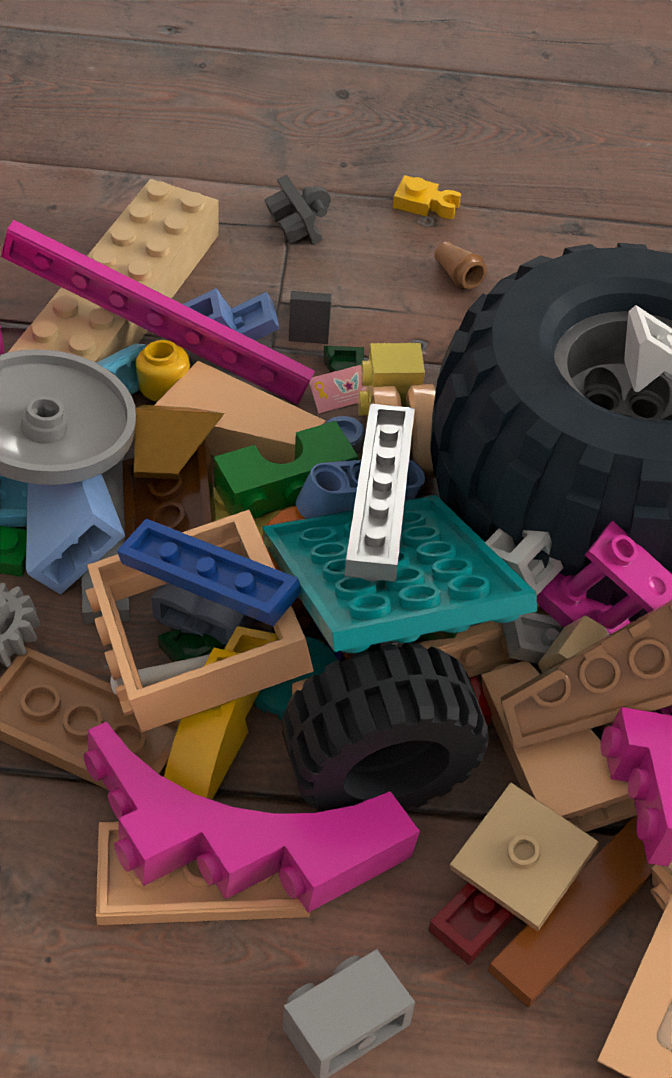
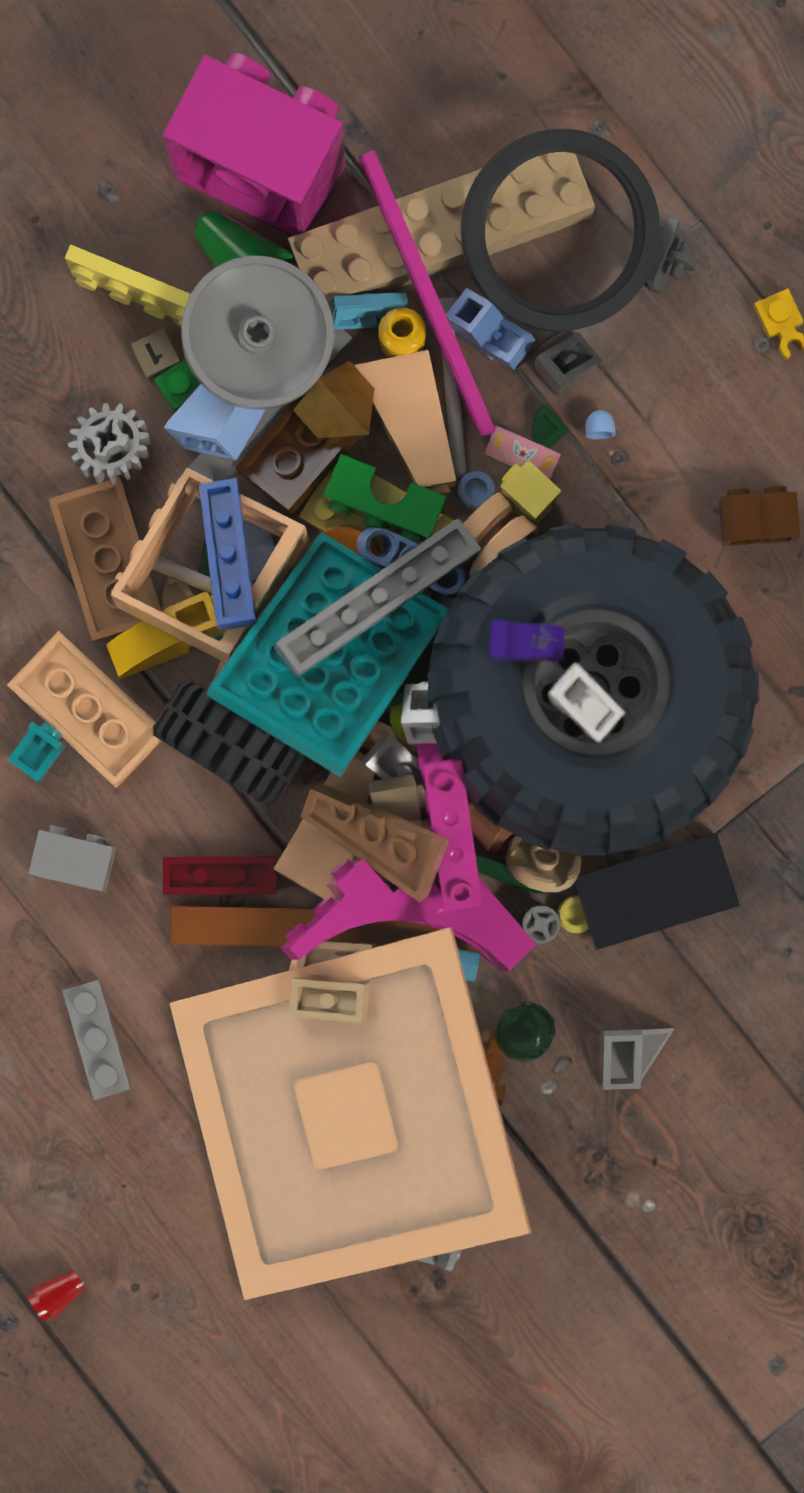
camera: 50 degrees right, 35 degrees up
(195, 942) = (37, 751): none -> teal bracket
(232, 155) = (645, 229): none -> black tyre
(239, 847) = (78, 679): dark pink arch -> none
(383, 328) = (600, 425): none -> light blue hinge
(461, 265) = (723, 418): medium nougat cone -> none
(524, 856) = (240, 875): tan plate -> none
(565, 350) = (525, 642): none -> dark purple leg

